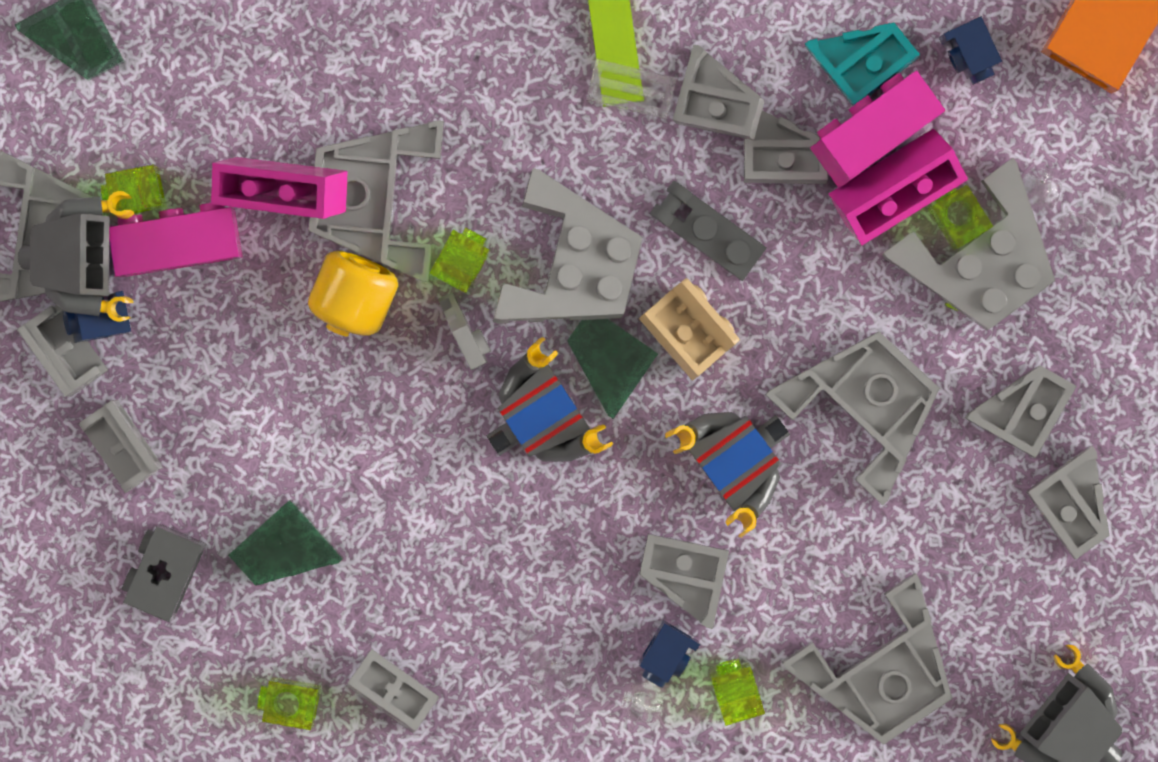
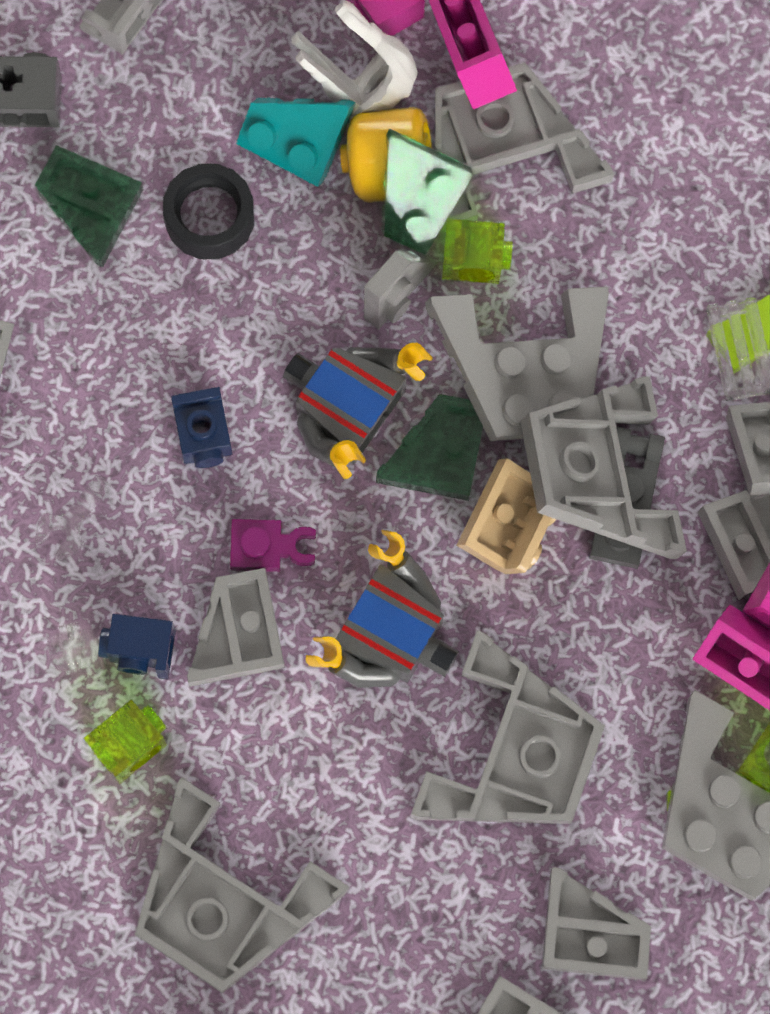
camera: 65 degrees right, 15 degrees down
(283, 295) = (383, 80): none -> white piece
(301, 360) = (296, 134): none -> teal wing
(306, 444) = (200, 177): none -> black tyre
(401, 287) = (419, 191): none -> clear green wing
(498, 535) = (199, 407): none -> dark blue brick
(625, 527) = (261, 545): none -> magenta plate
(679, 261) = (582, 473): none -> light grey wing

